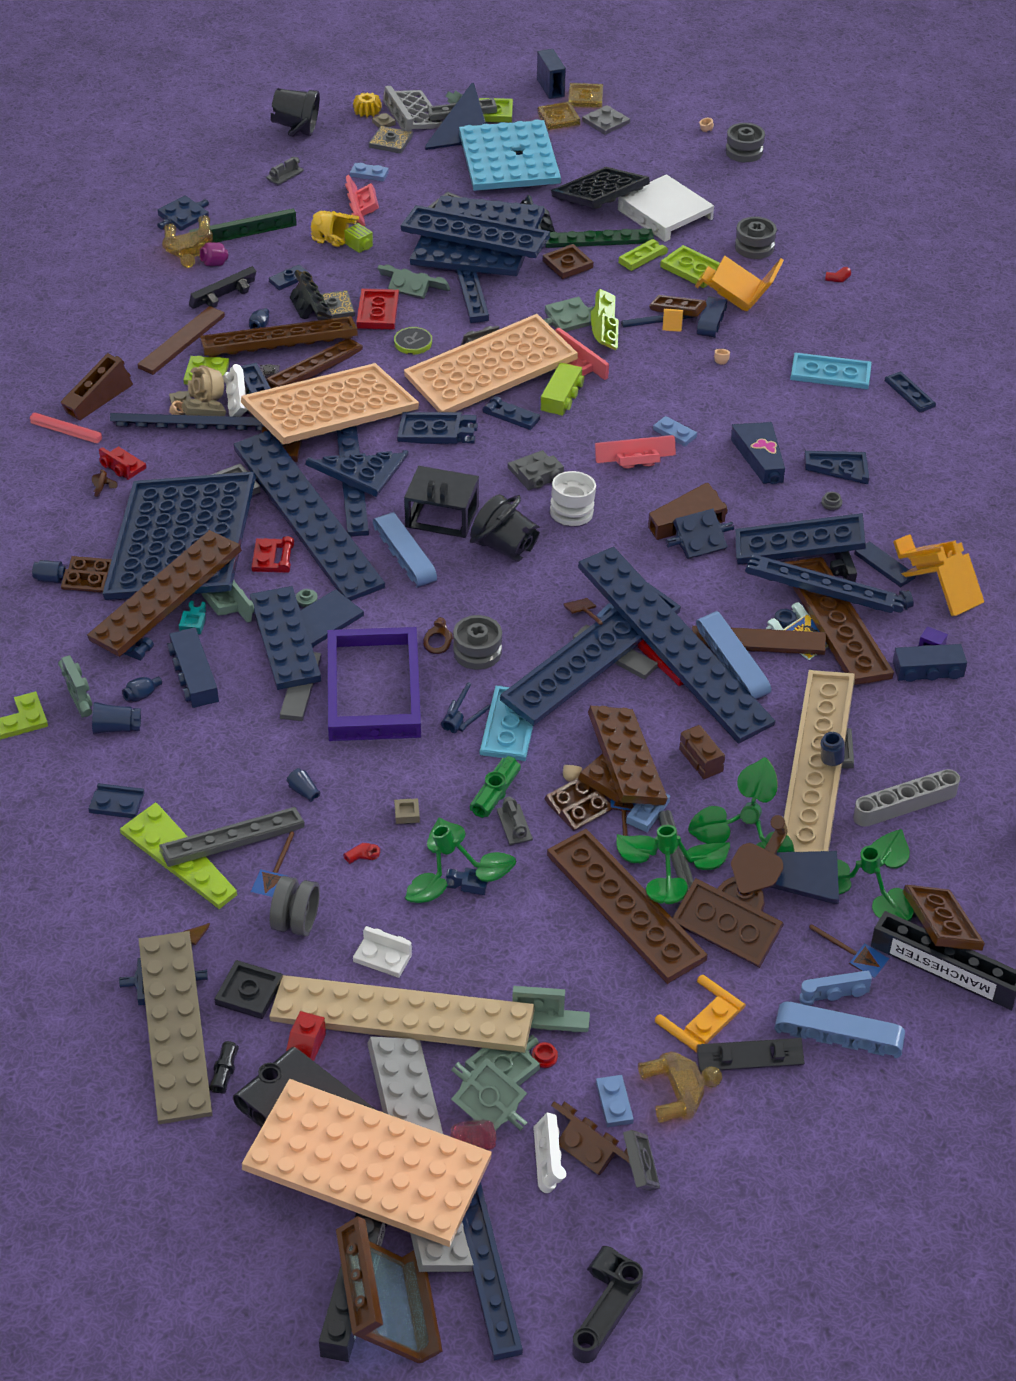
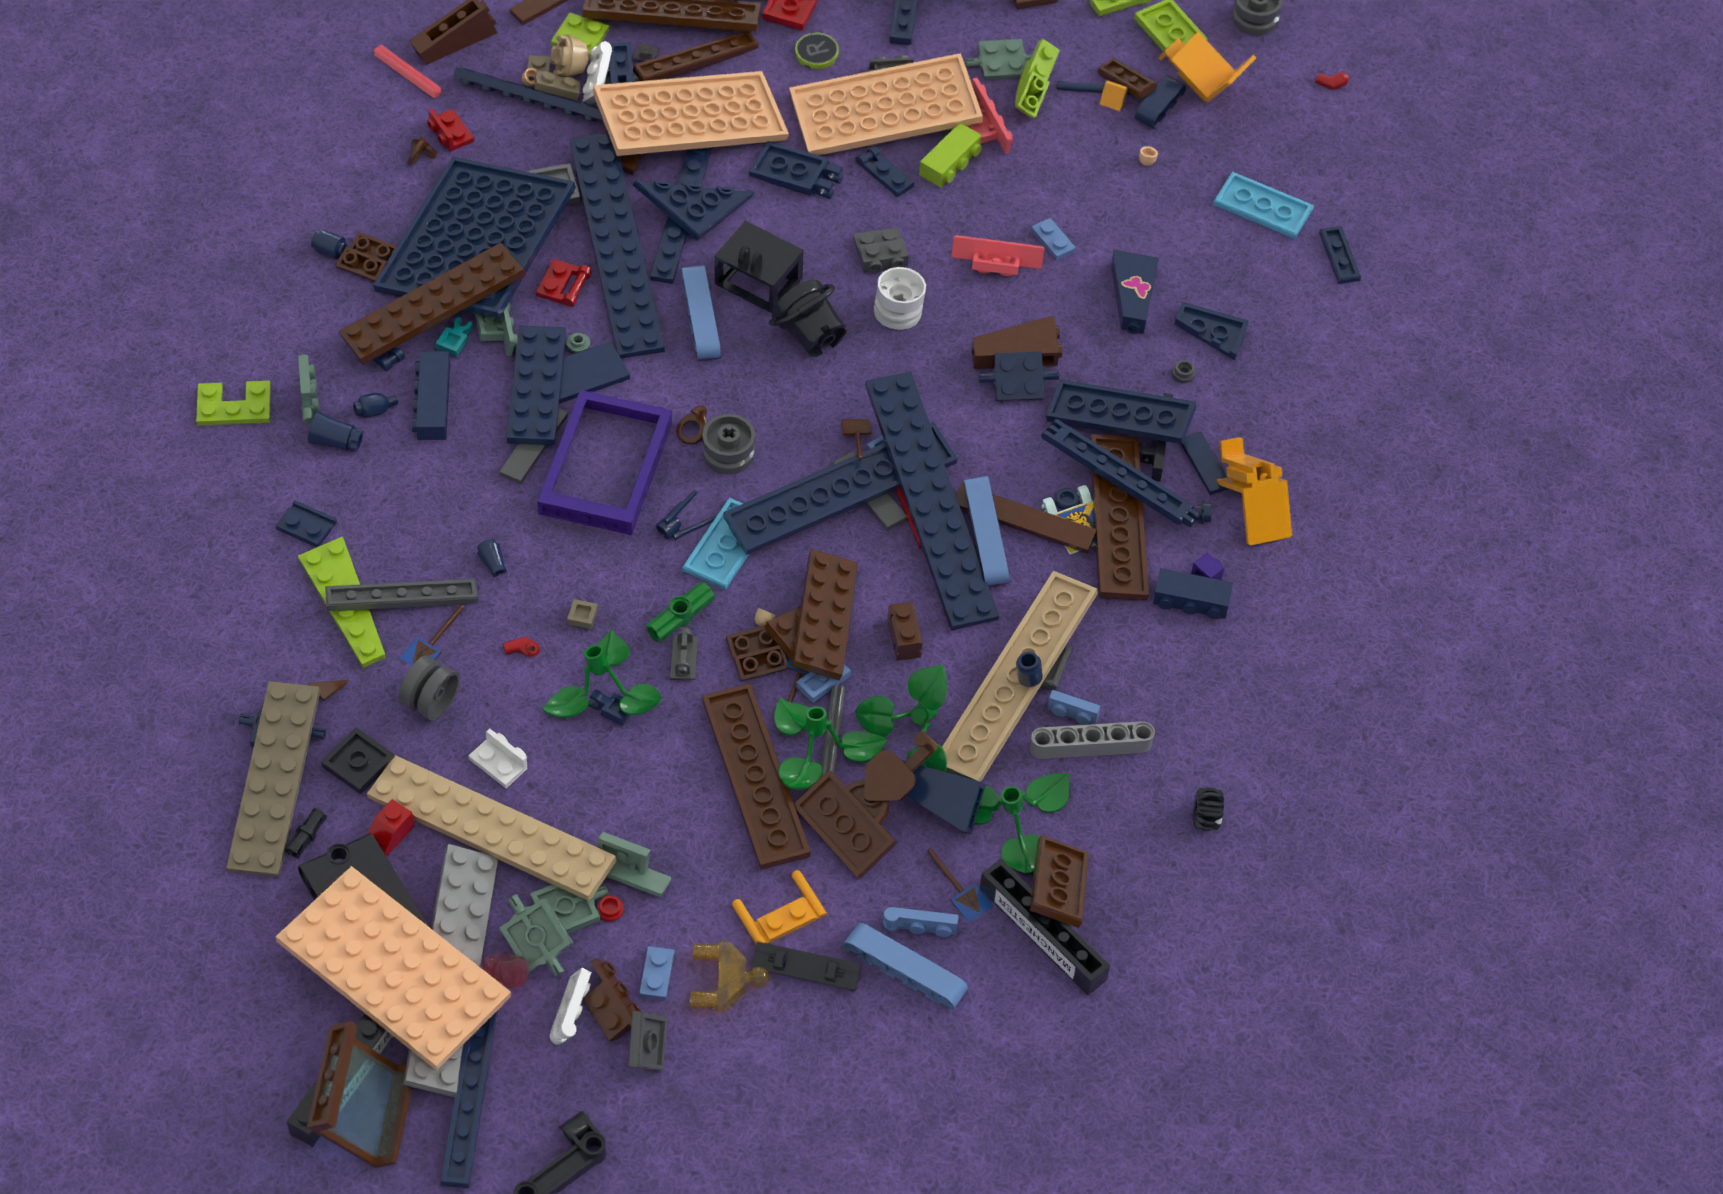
camera: 15 degrees right, 10 degrees up
(877, 776) = (1066, 705): none -> medium blue plate

